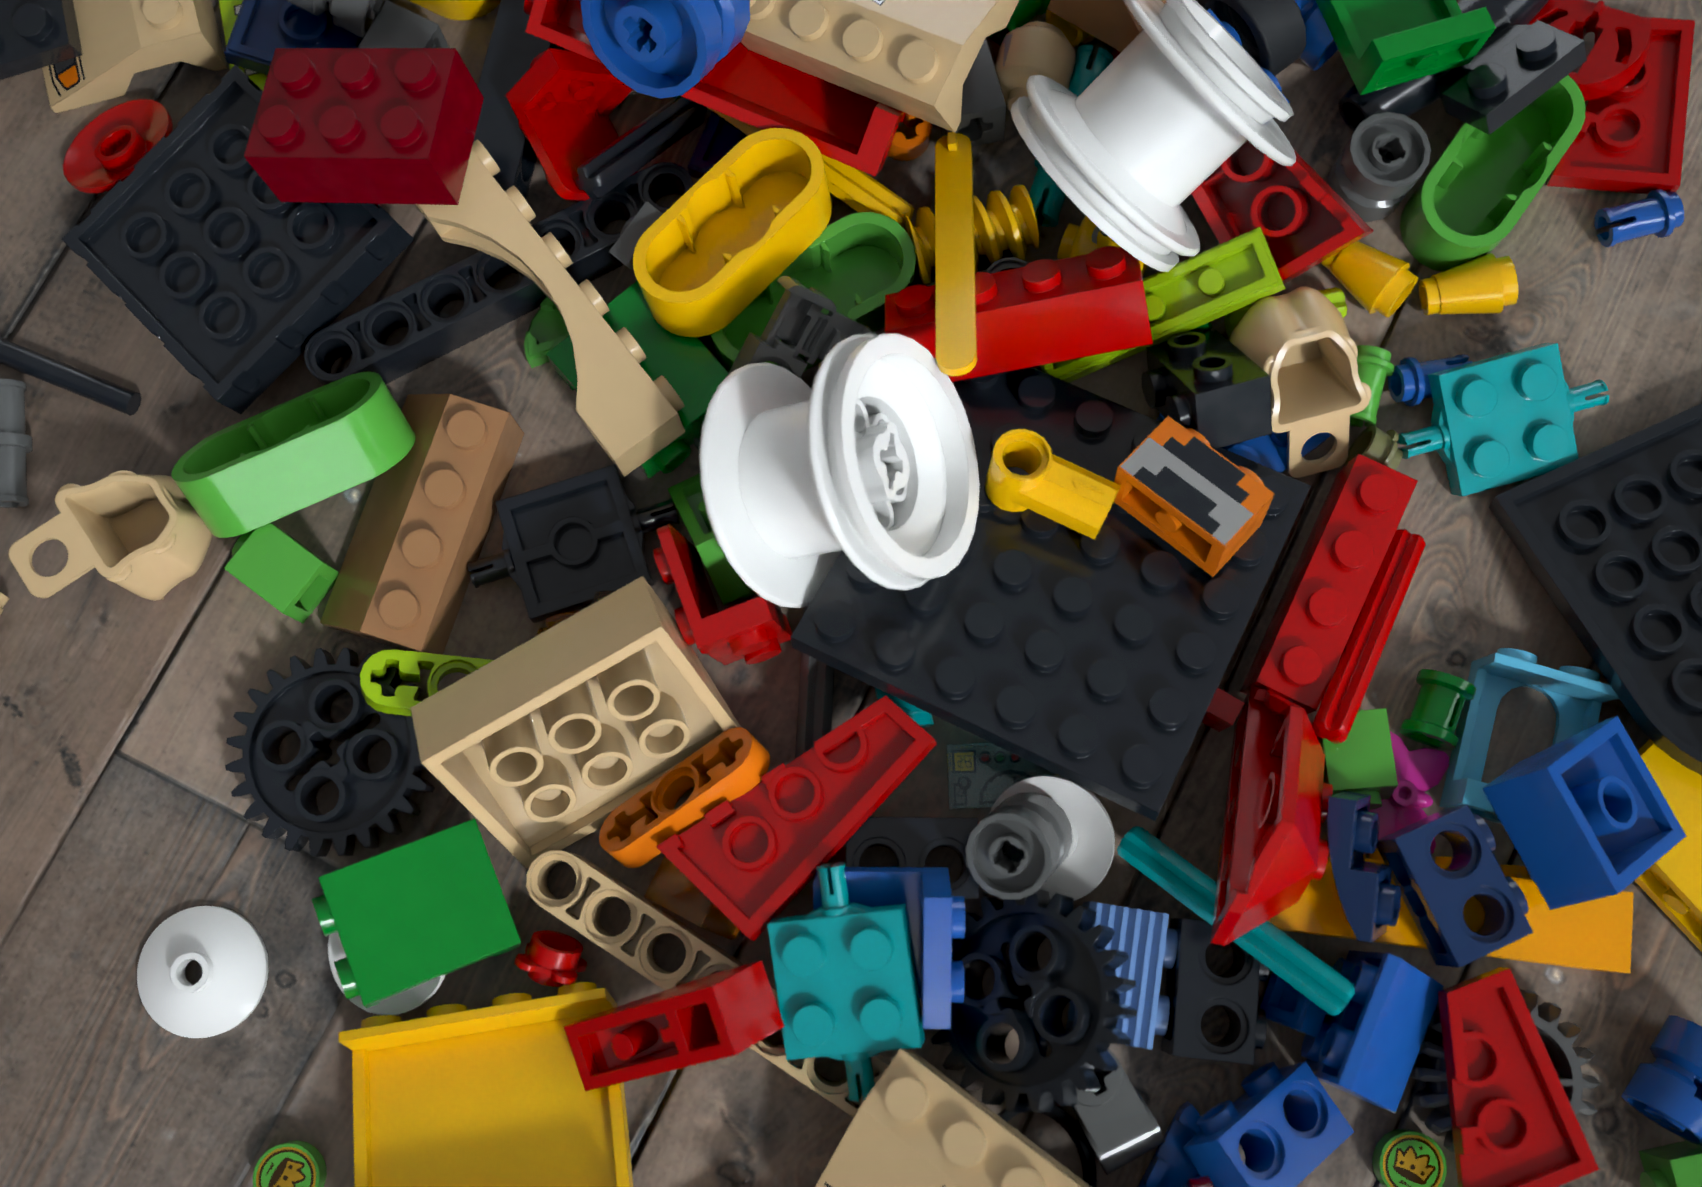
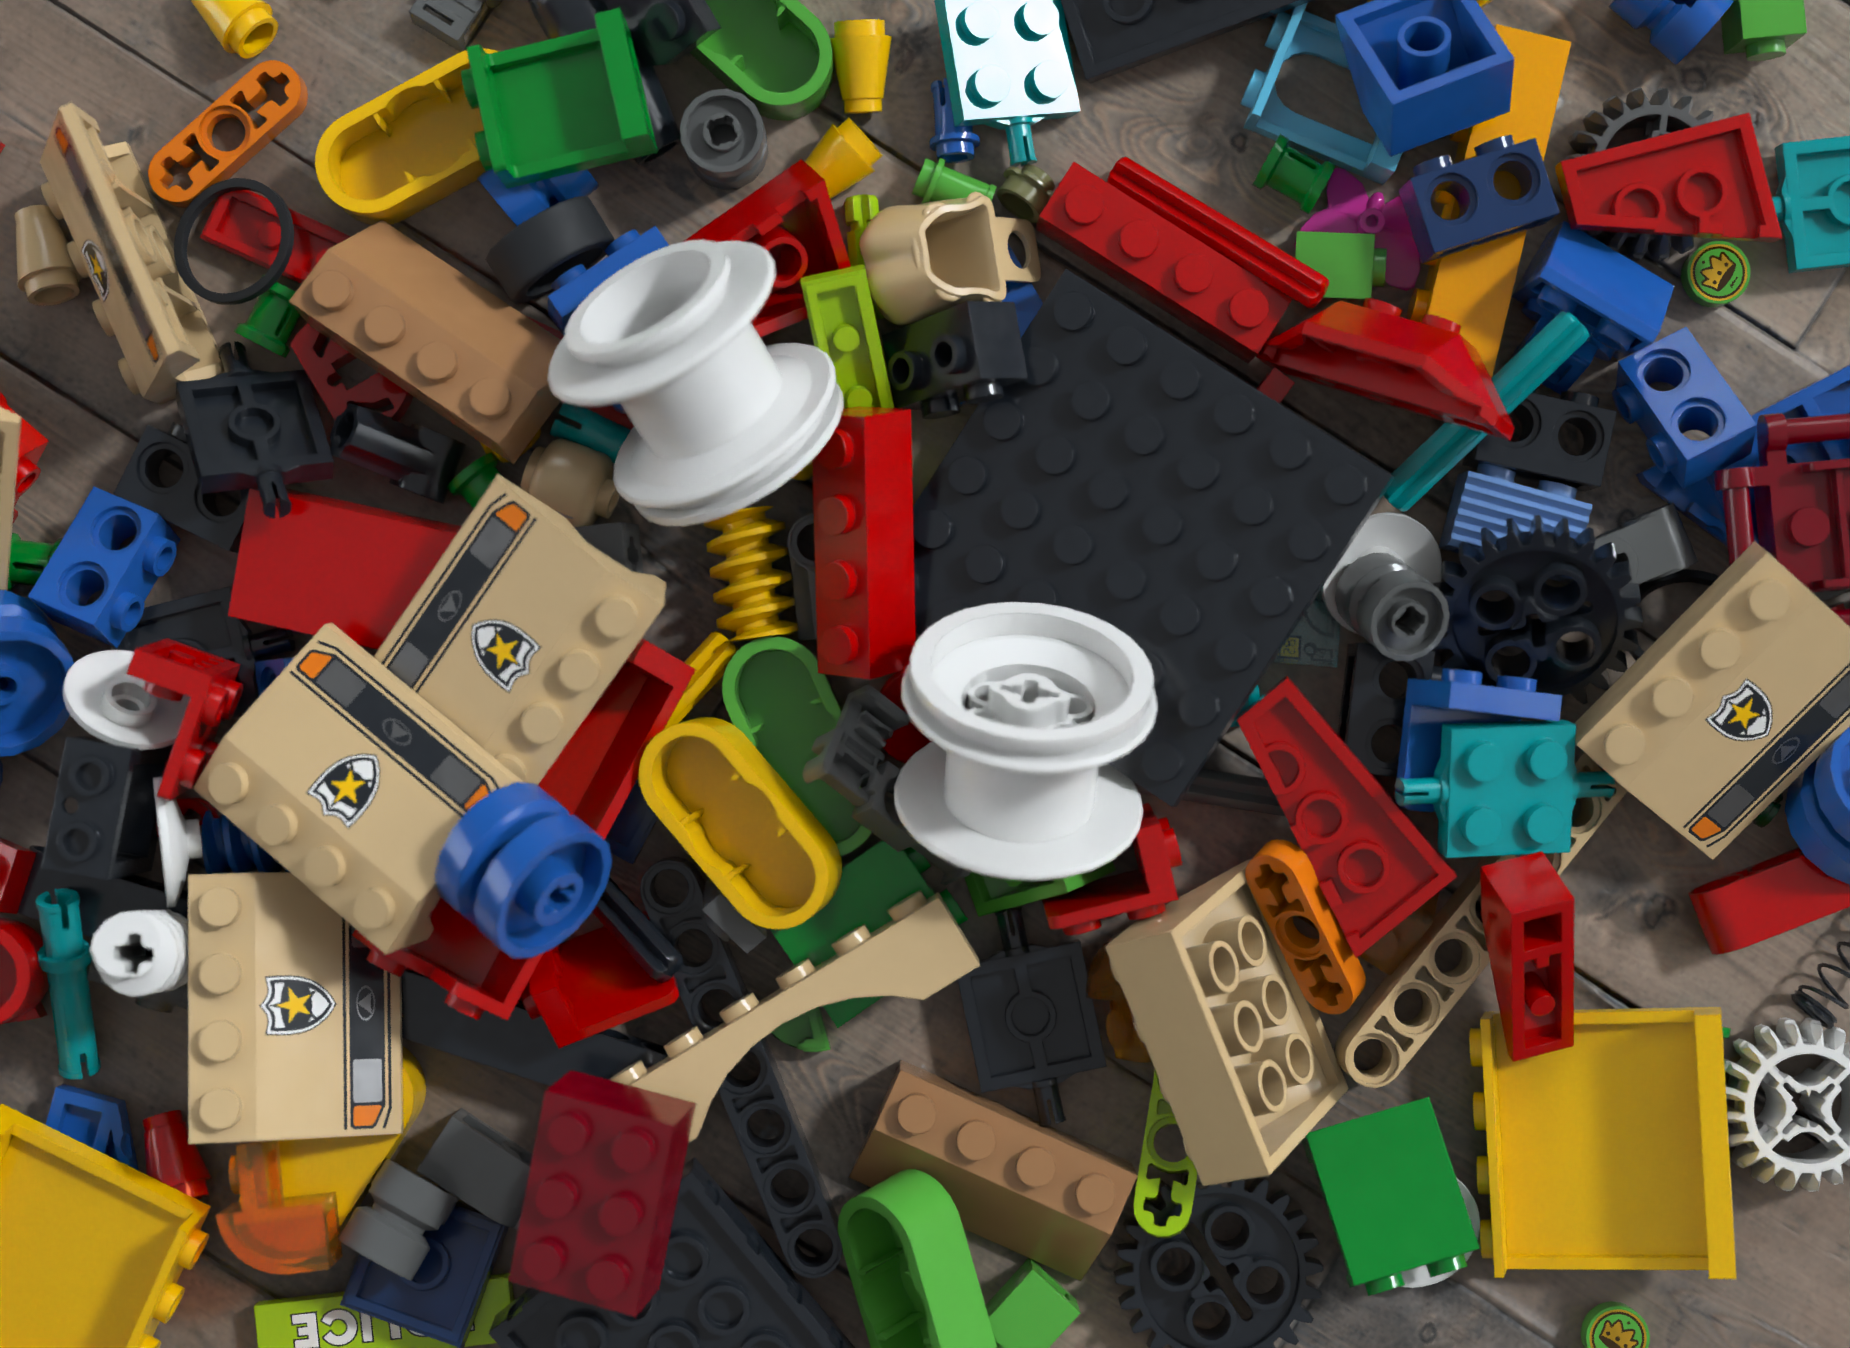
camera: 85 degrees left, 10 degrees up
(552, 958) = (1442, 1069): red plate -> none
(955, 256) = (800, 598): yellow piece -> none
(1053, 484) = (1055, 525): yellow piece -> none
(1192, 495) = (1076, 394): brick -> none
(1362, 886) = (1462, 289): dark blue slope -> none

